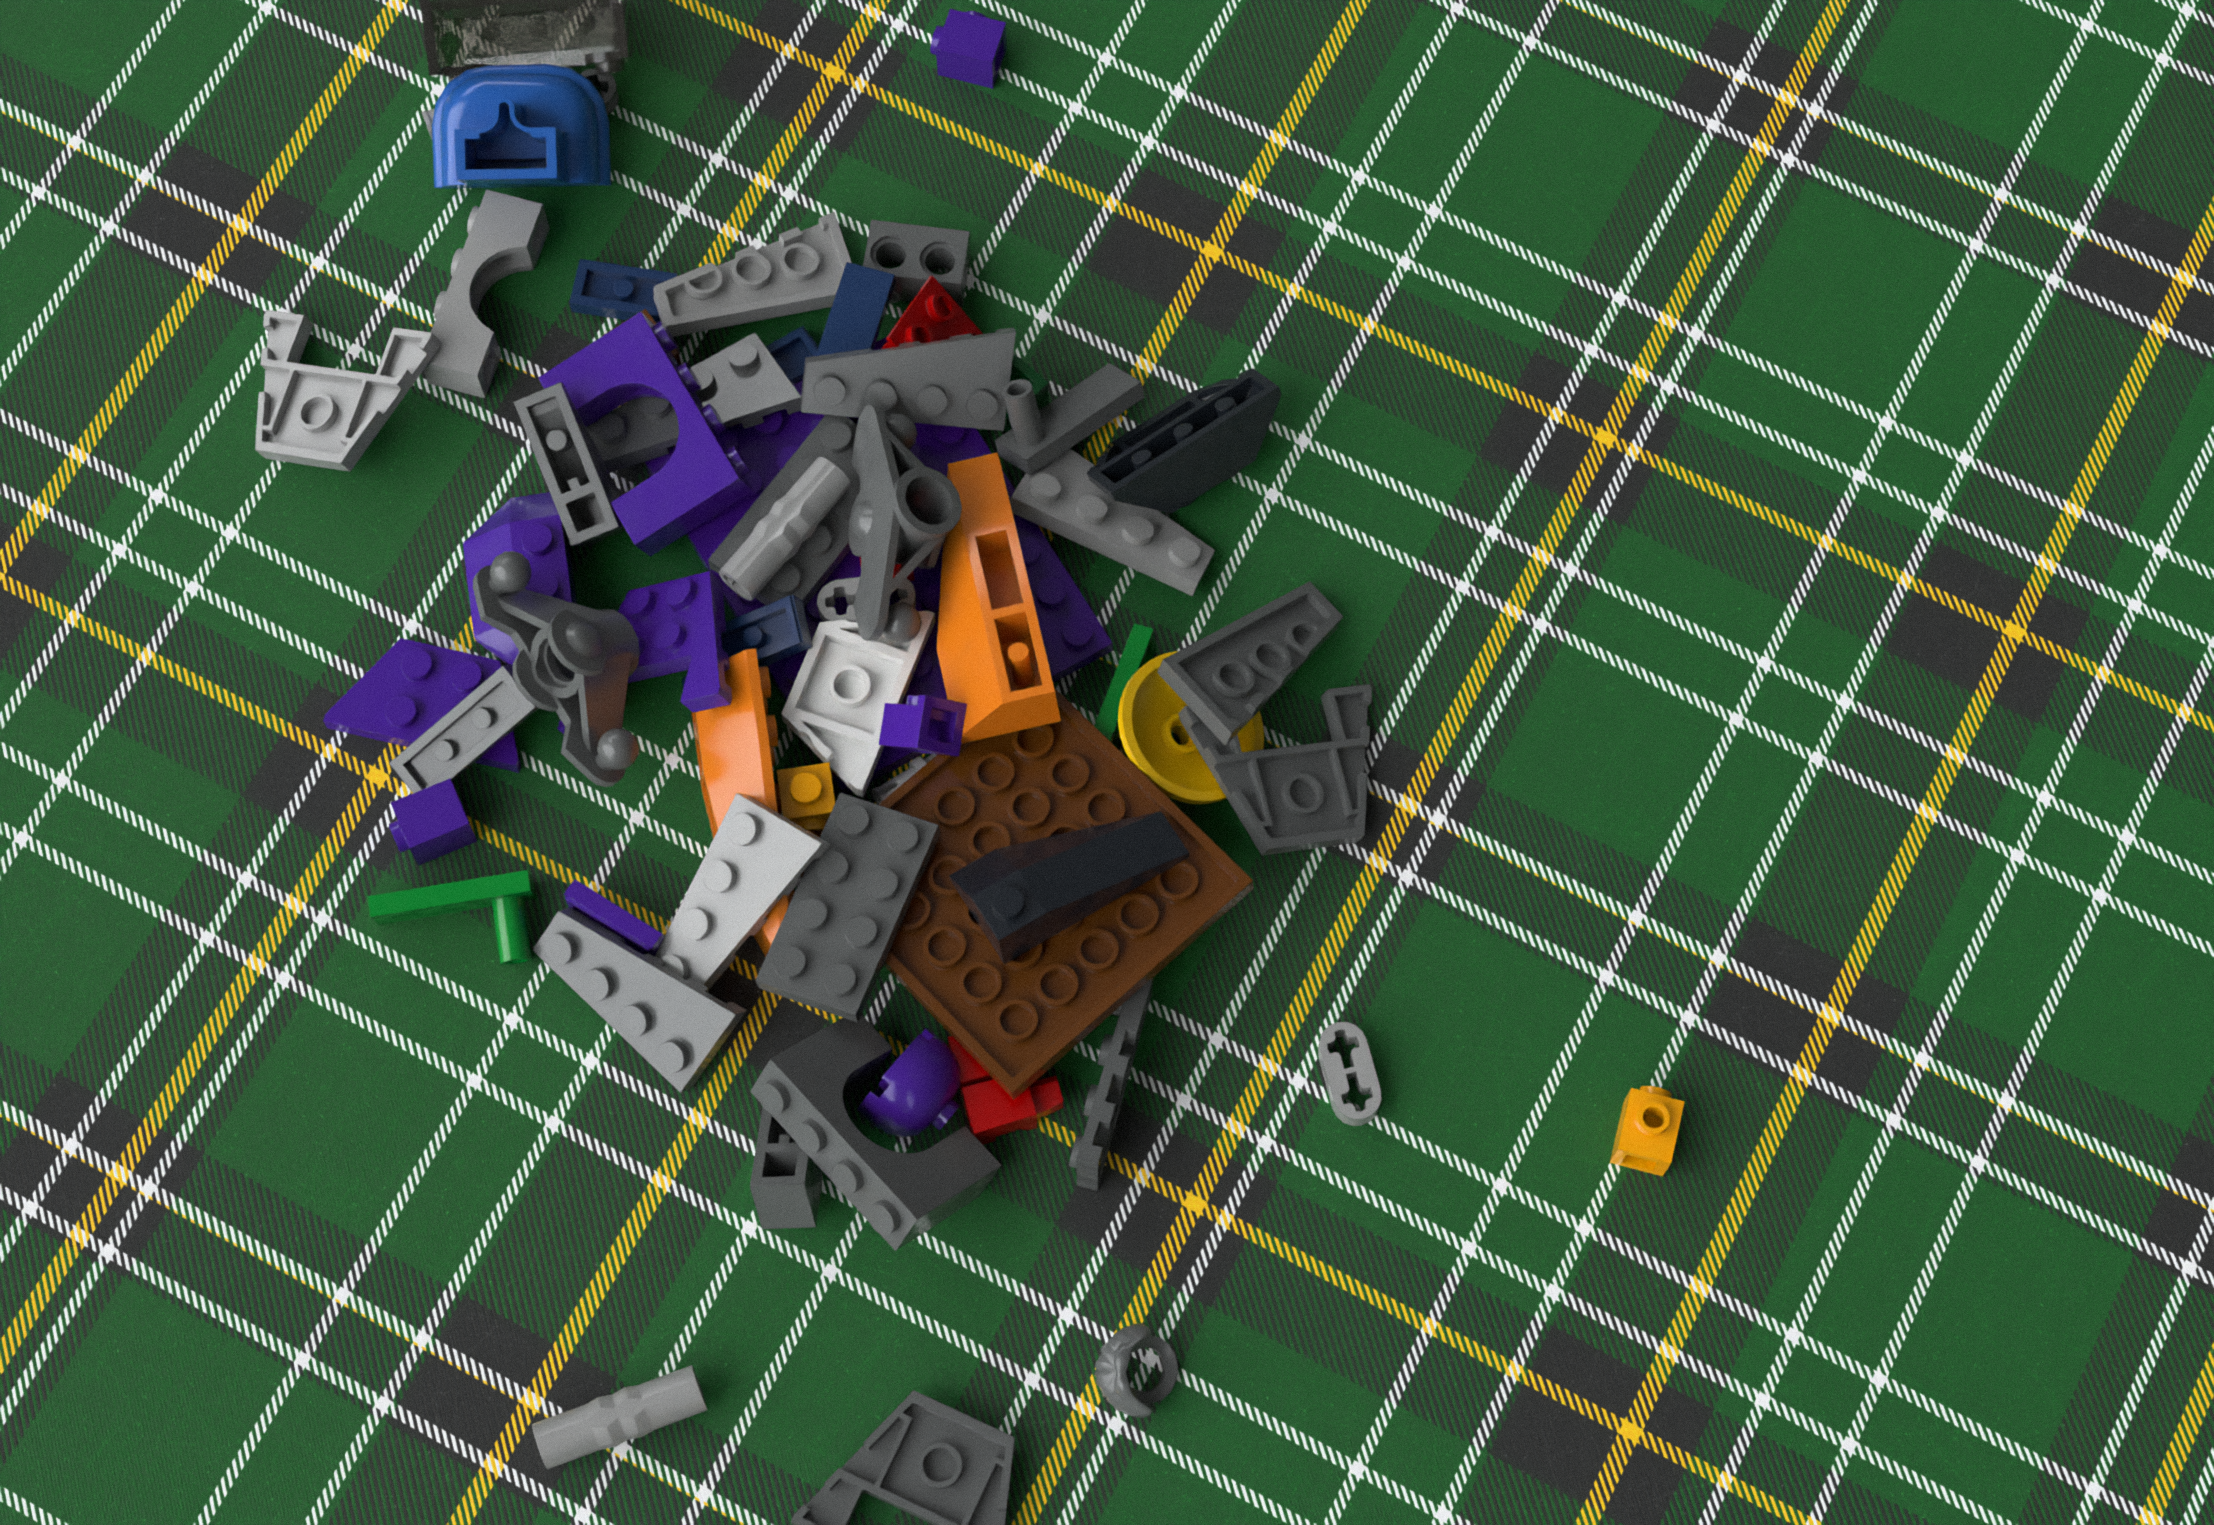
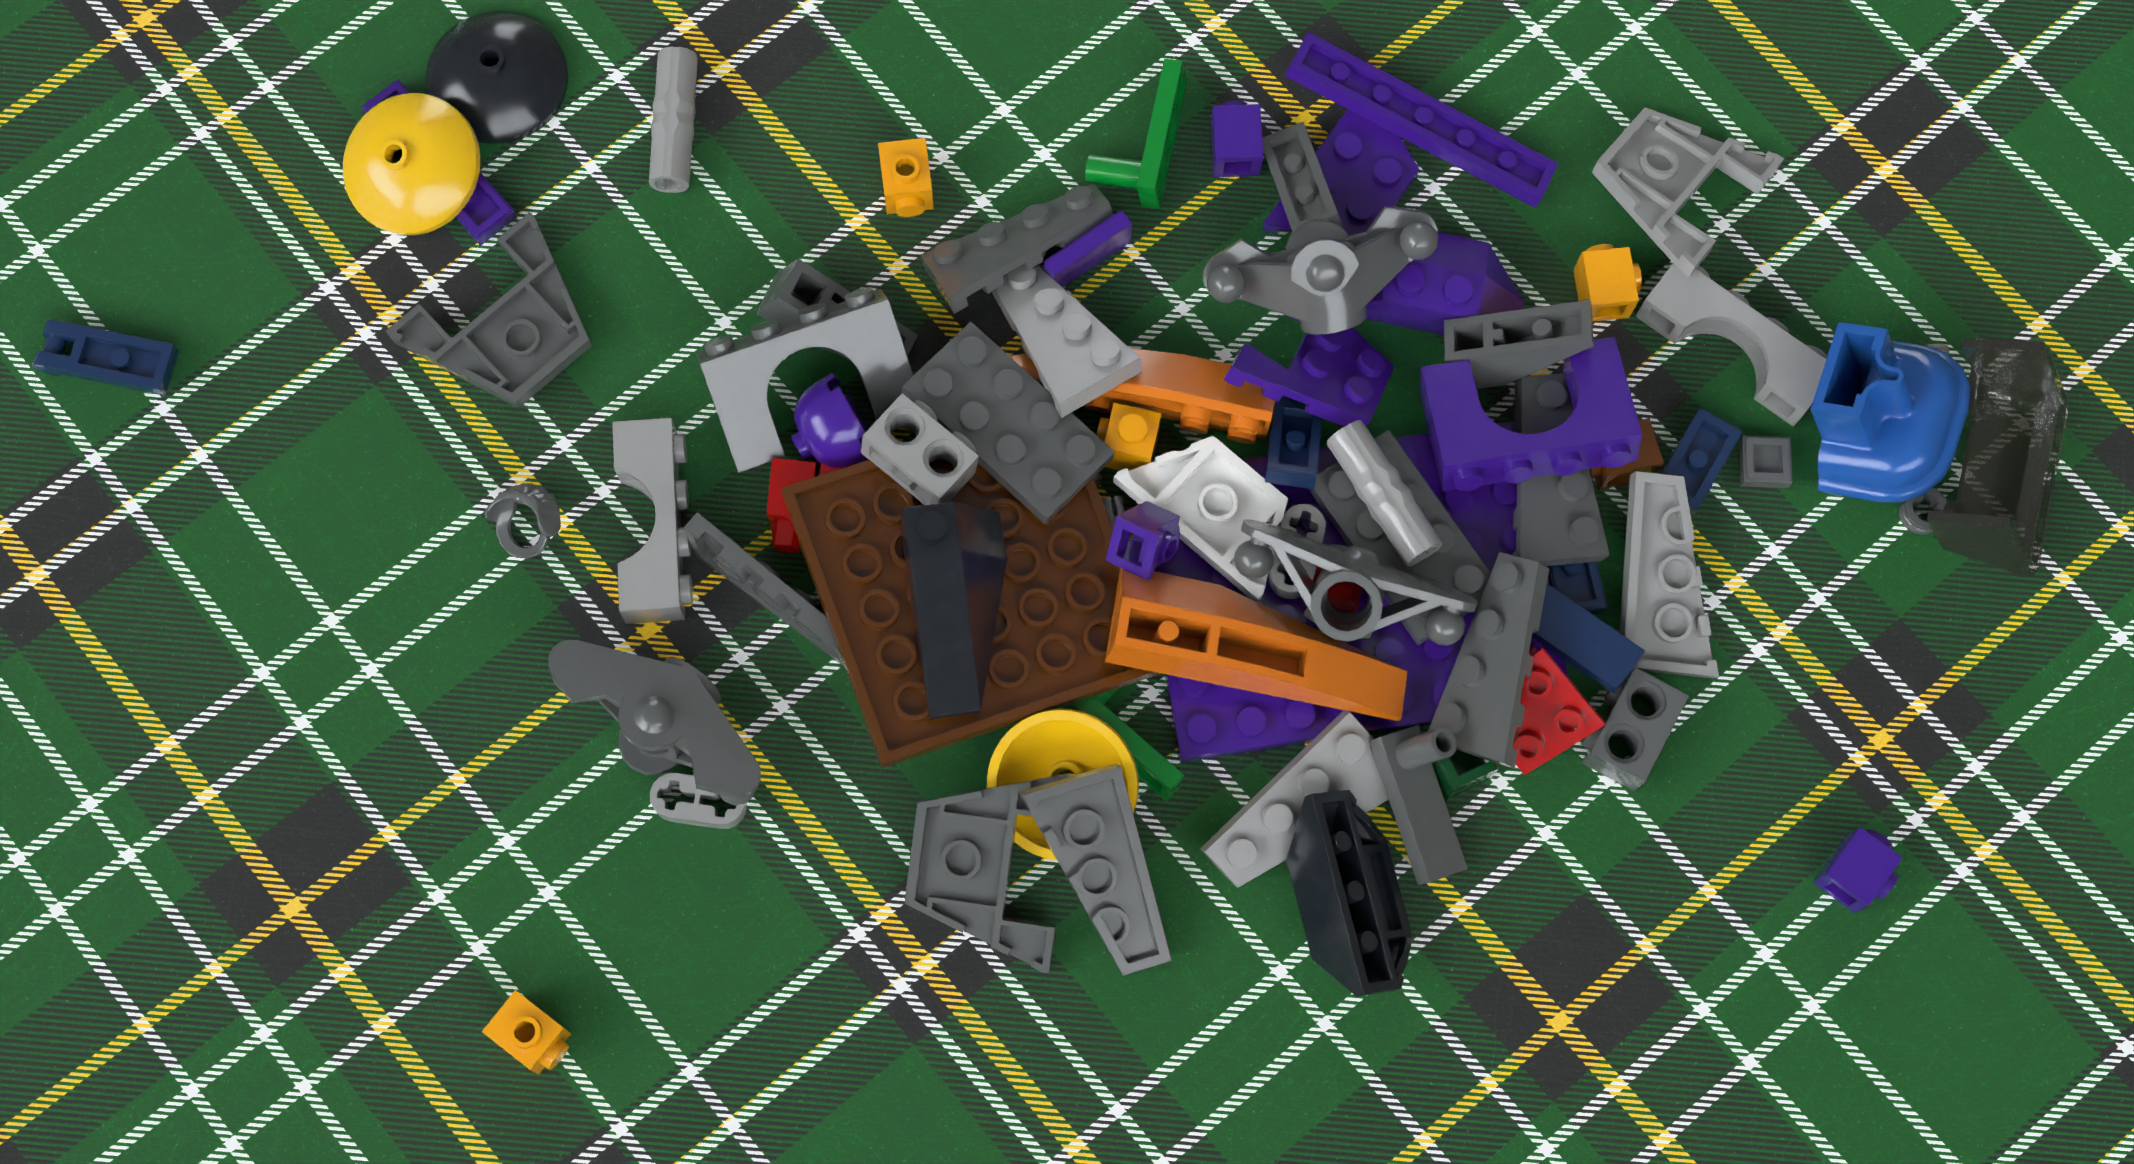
camera: 110 degrees right, 5 degrees up
(347, 650) = (1421, 119): none -> dark purple plate
(465, 425) = (1608, 280): none -> light orange brick
(598, 236) = (1765, 461): none -> dark grey tile
(600, 1137) = (906, 177): none -> light orange brick
(934, 966) = (910, 461): none -> light grey brick
(1146, 1208) = (653, 578): none -> light grey arch
(1289, 1124) = (663, 713): none -> dark grey piece

